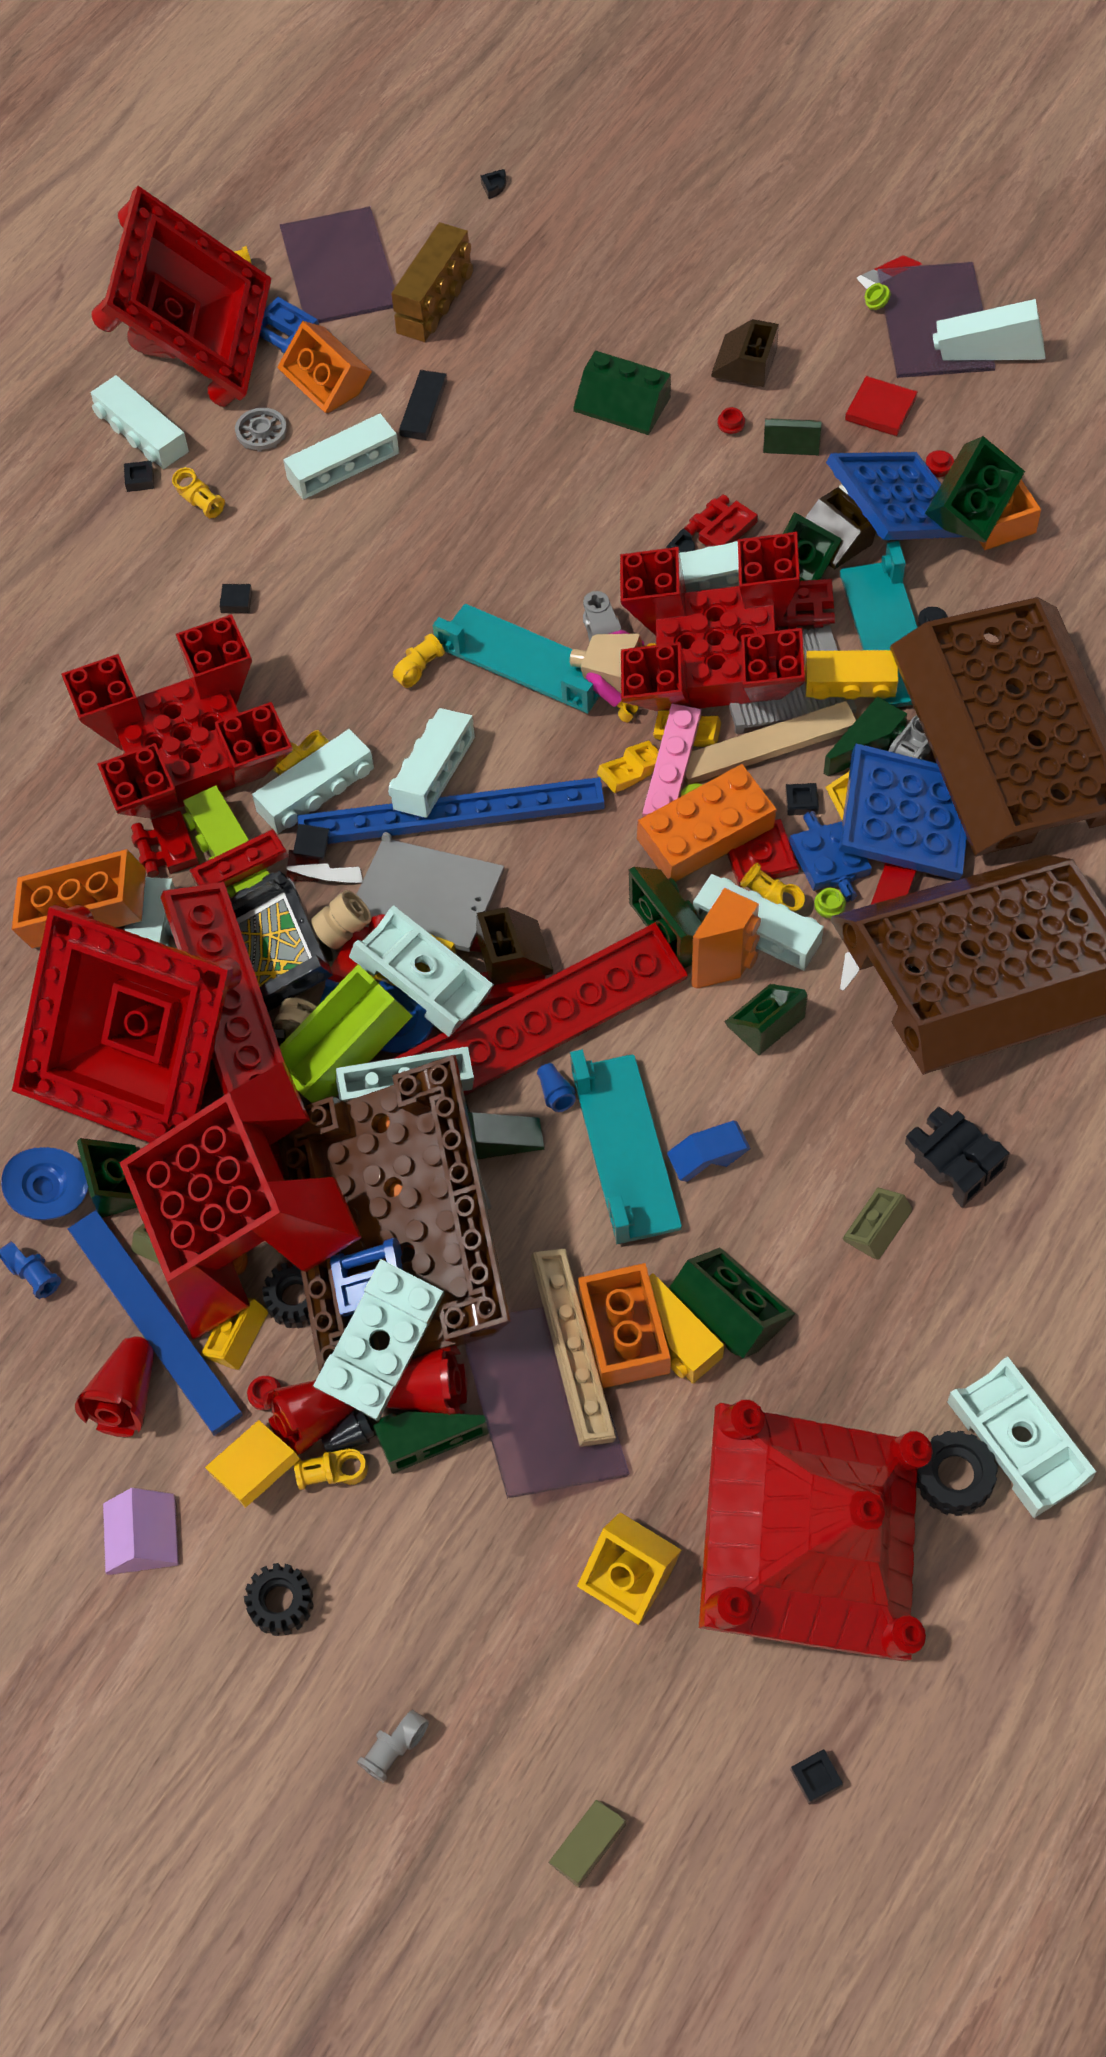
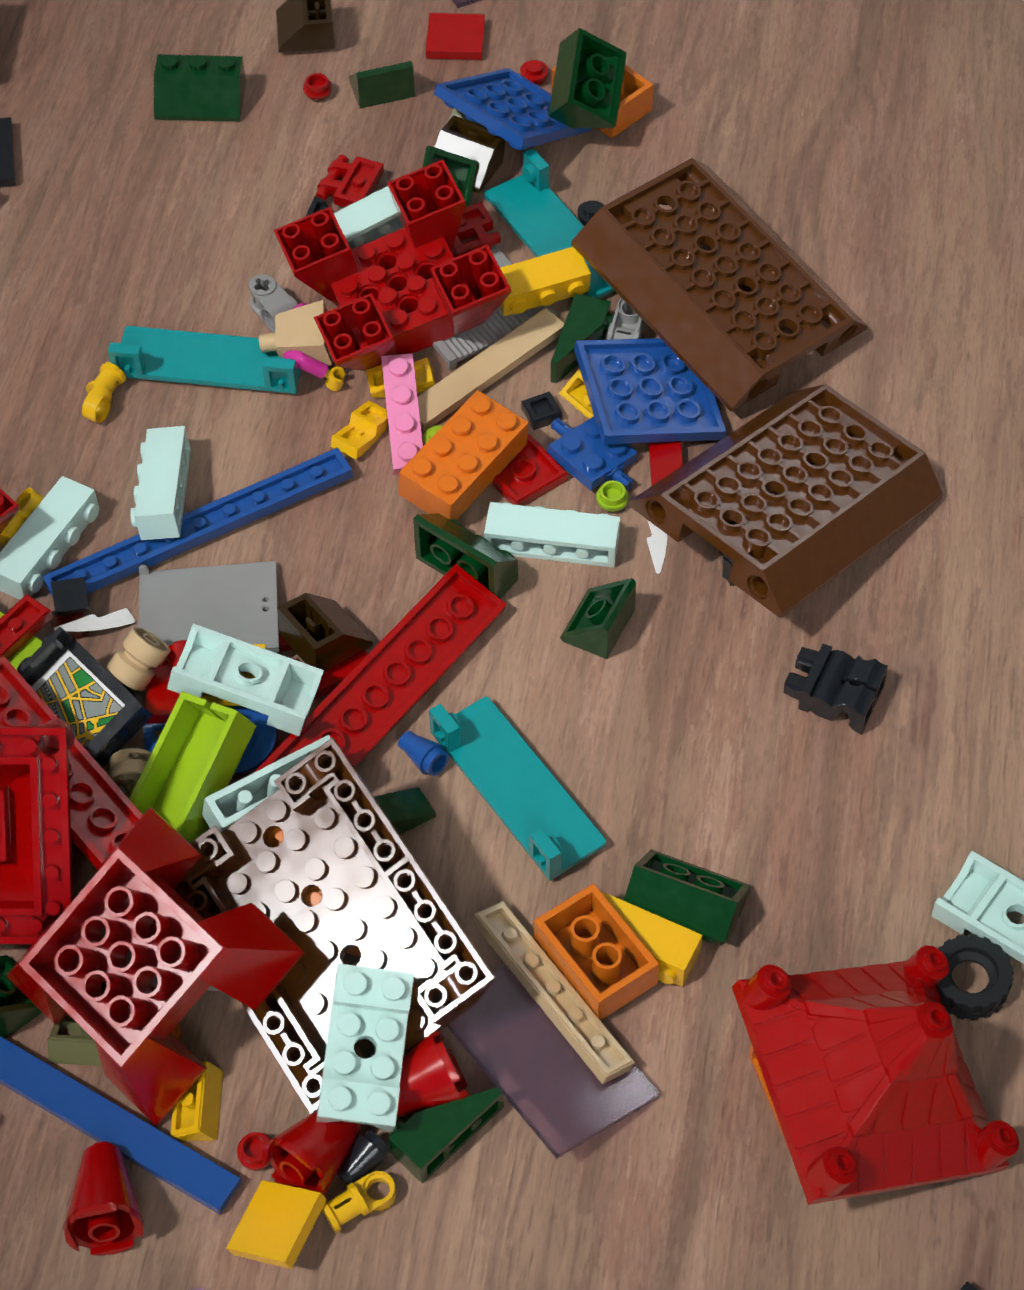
camera: 25 degrees left, 5 degrees down
(273, 1296) = (230, 1059): black tyre -> none
(351, 1289) = (315, 1009): plate -> none
(628, 1567) = (703, 1183): yellow slope -> none
(715, 1145) = (596, 760): blue slope -> none
(725, 940) = (537, 556): orange slope -> none
(770, 888) = (536, 495): yellow connector -> none
(878, 1222) = (791, 774): olive slope -> none

